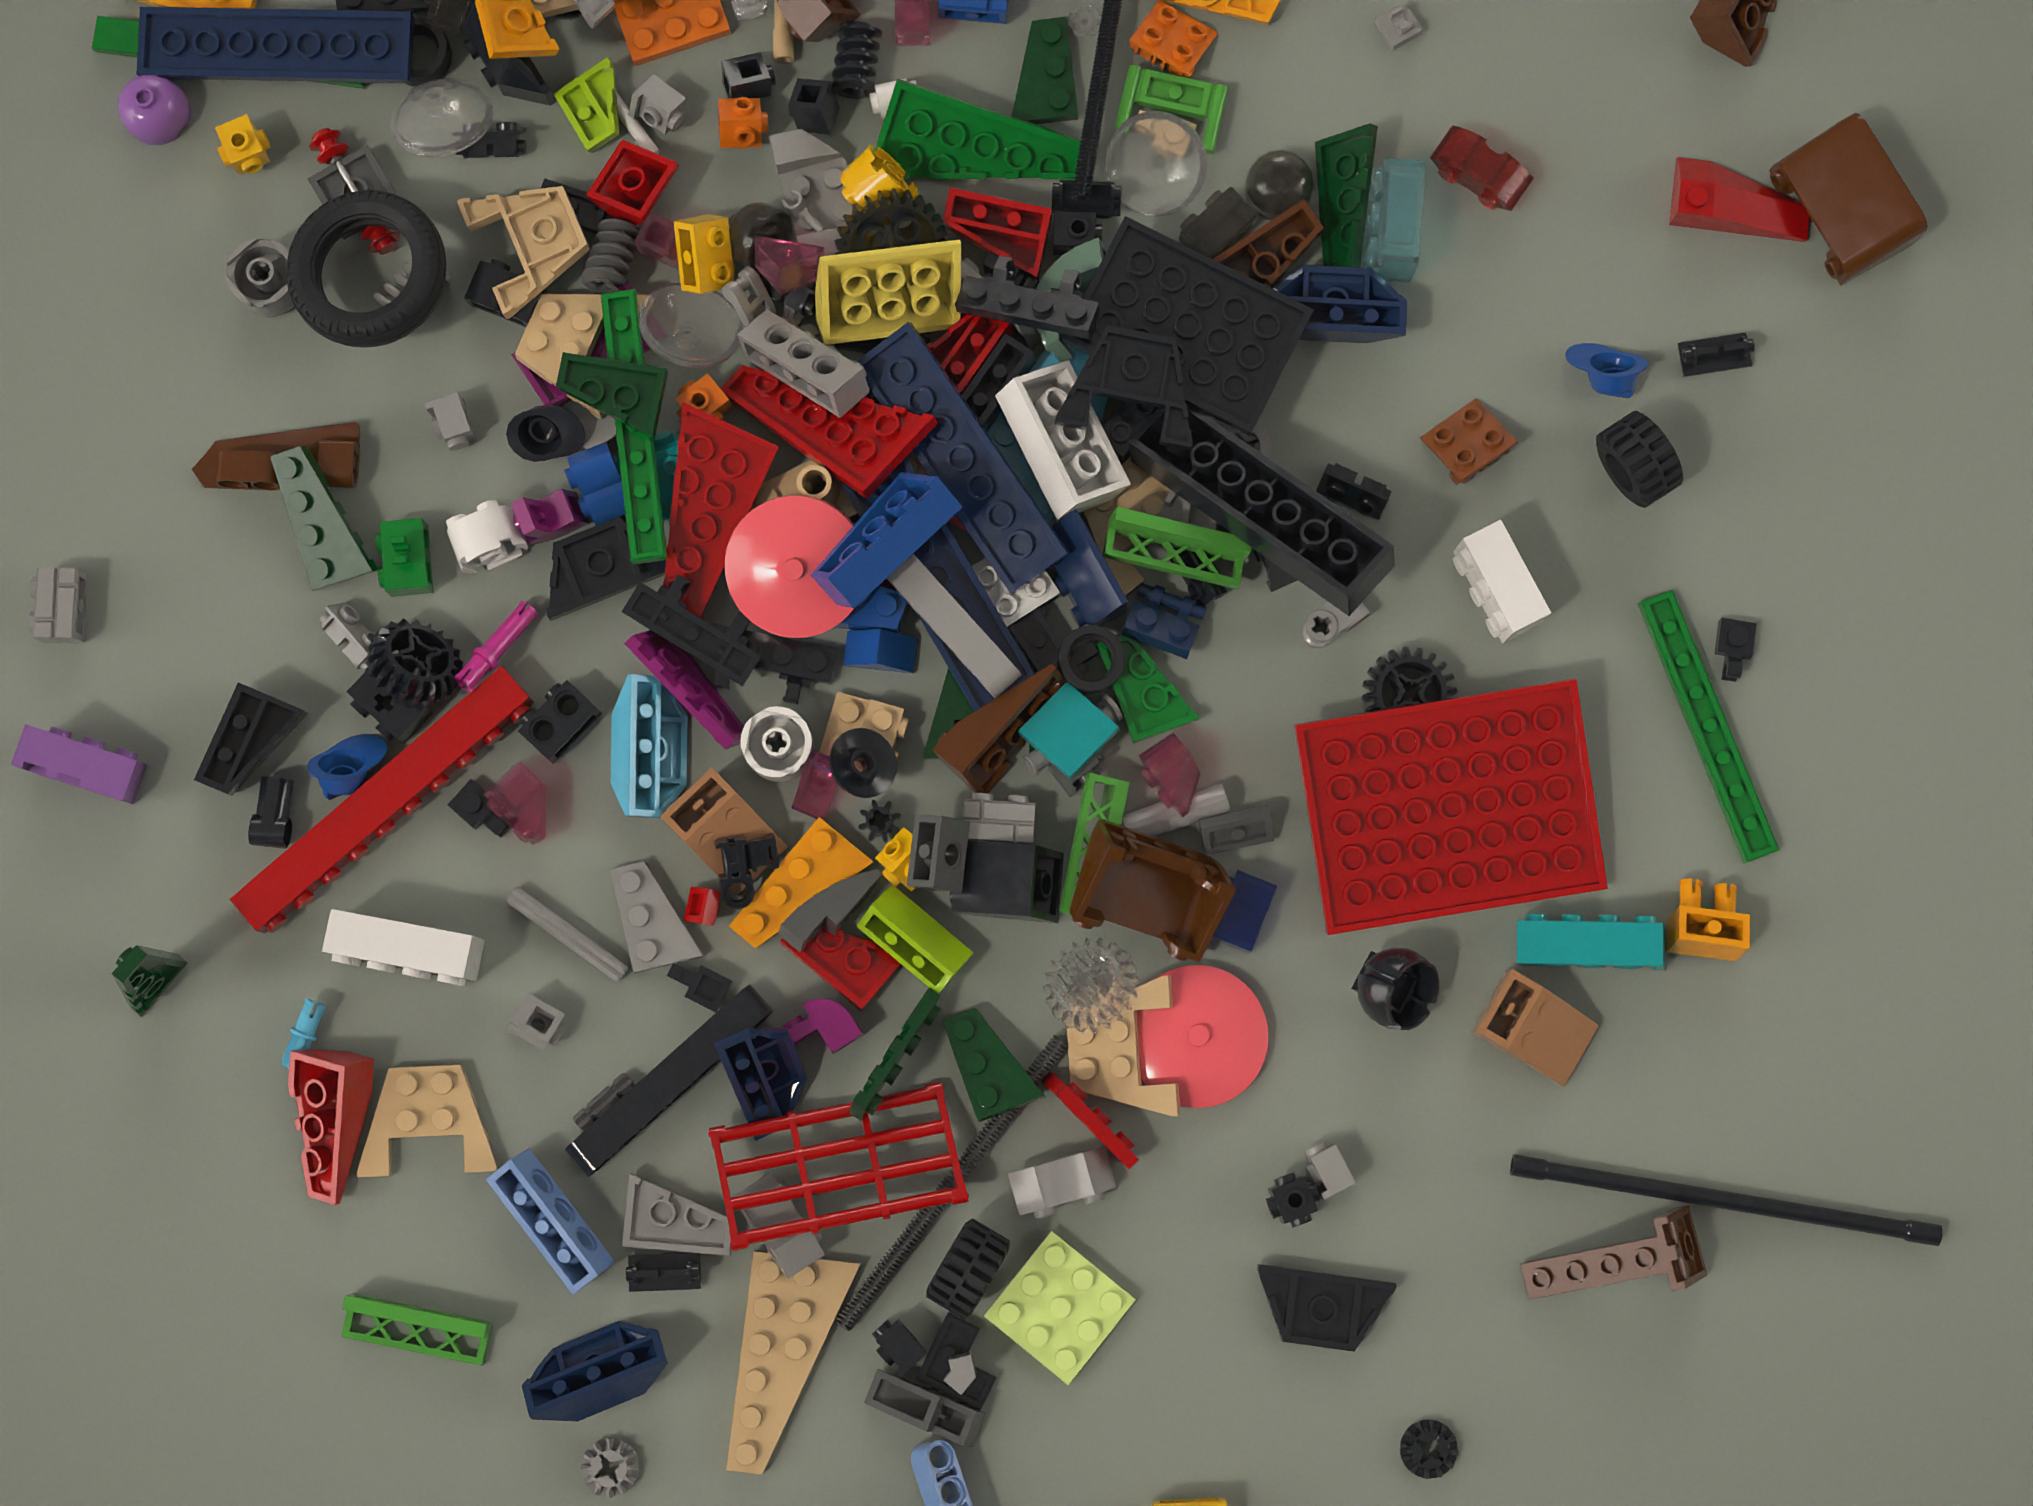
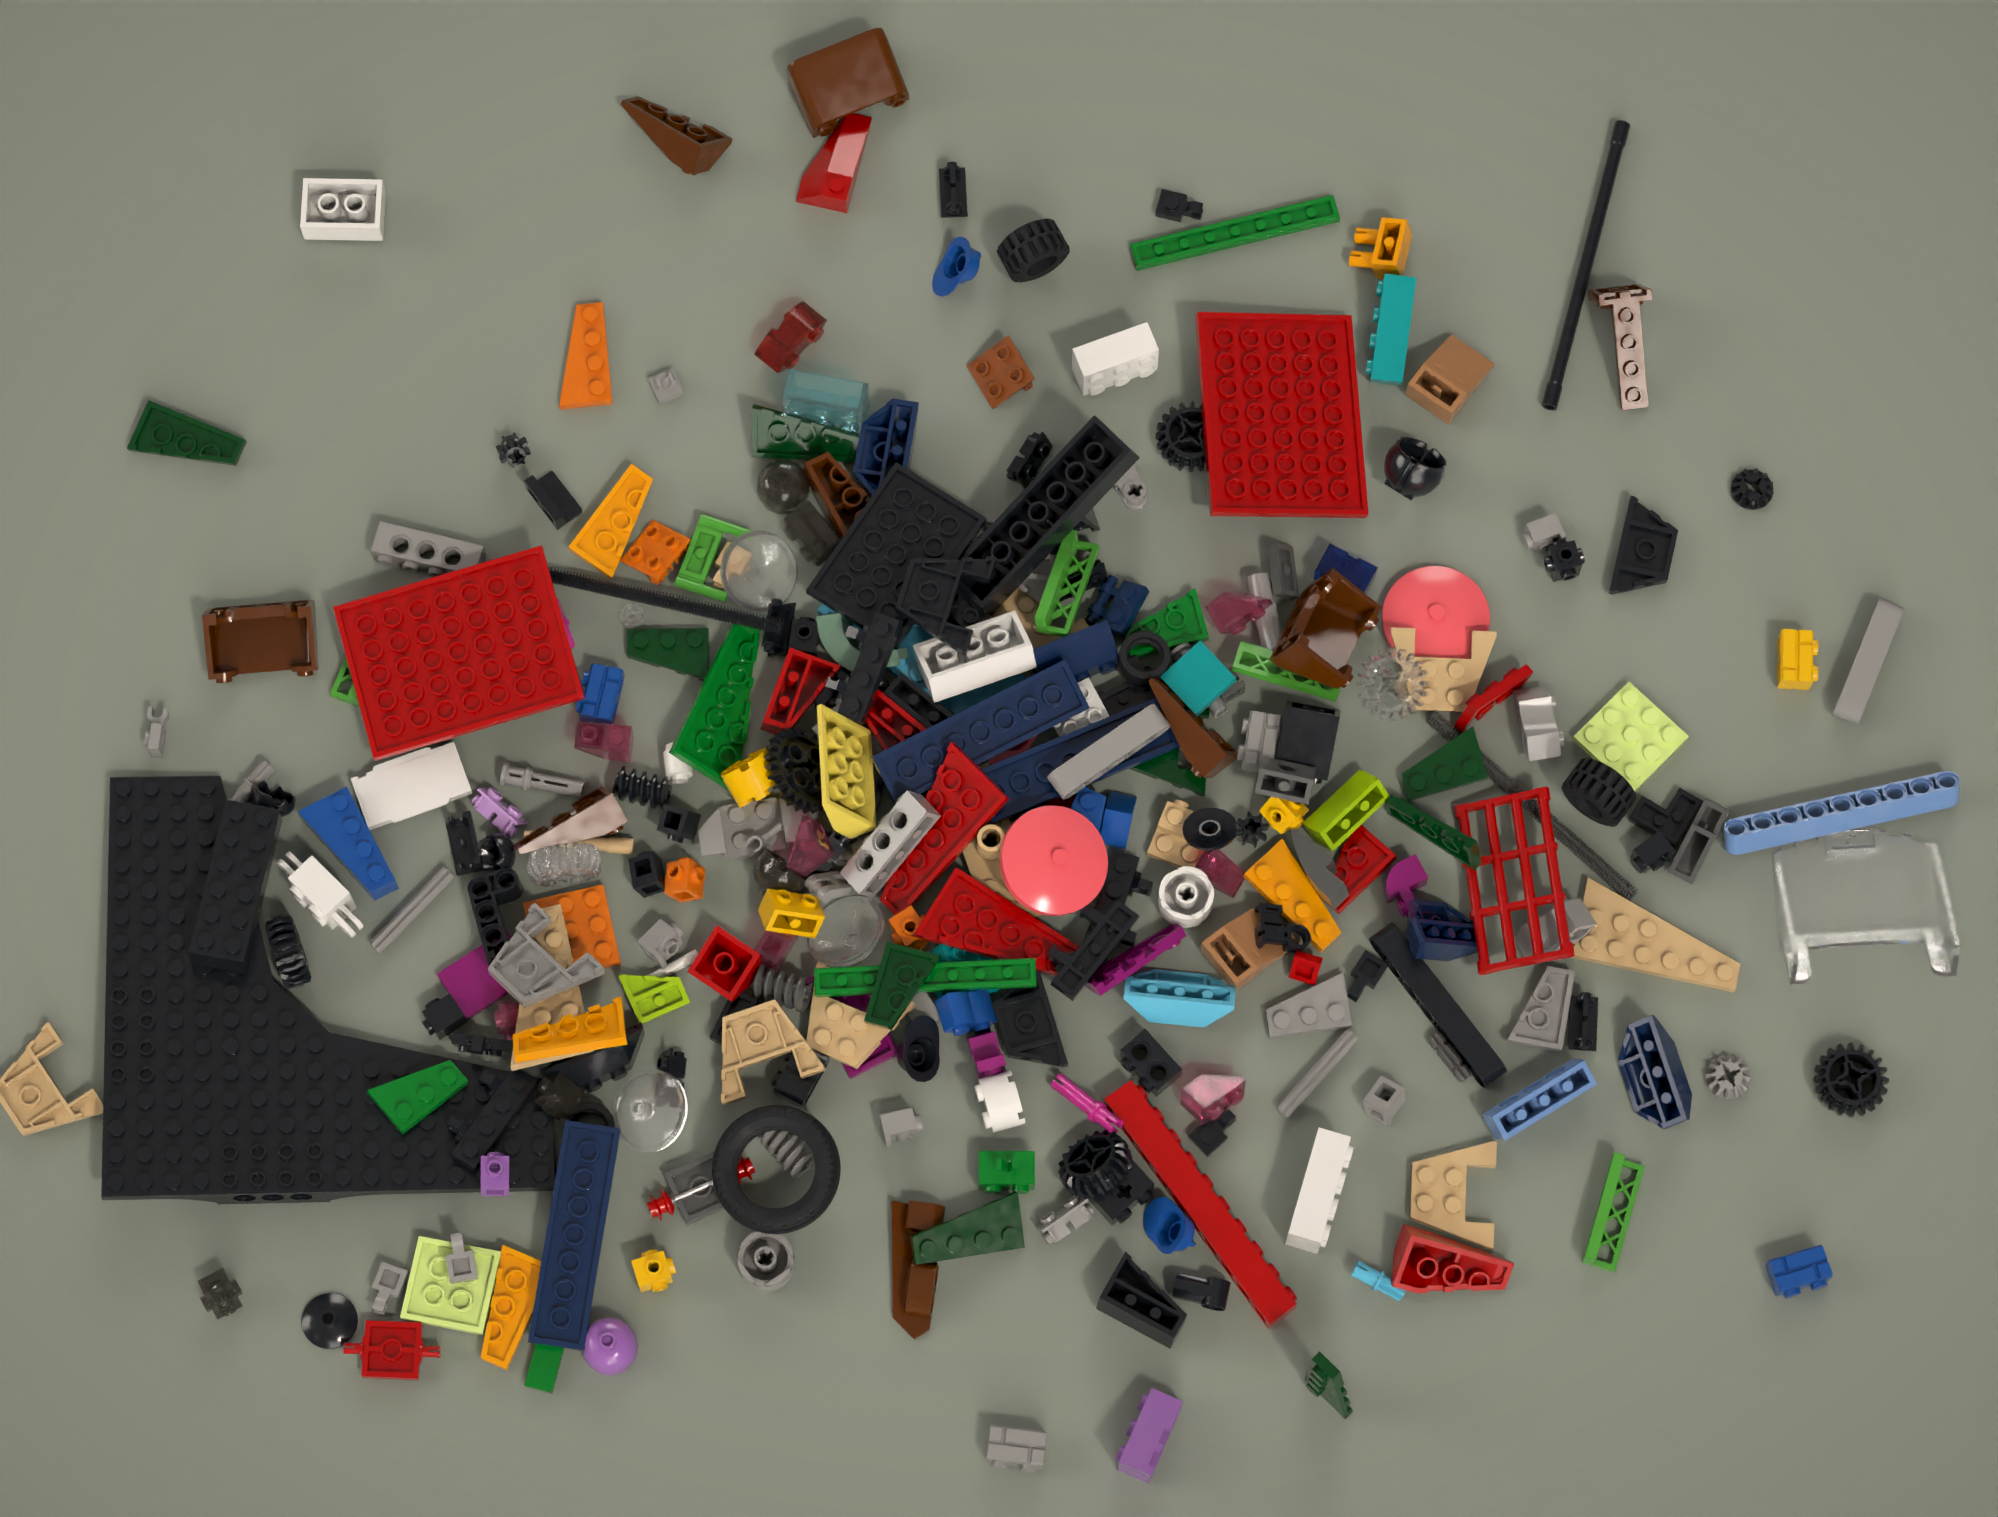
camera: 85 degrees left, 10 degrees down
(885, 537) = (1042, 782): blue wedge -> none
(961, 1372) = (1674, 806): light grey piece -> none

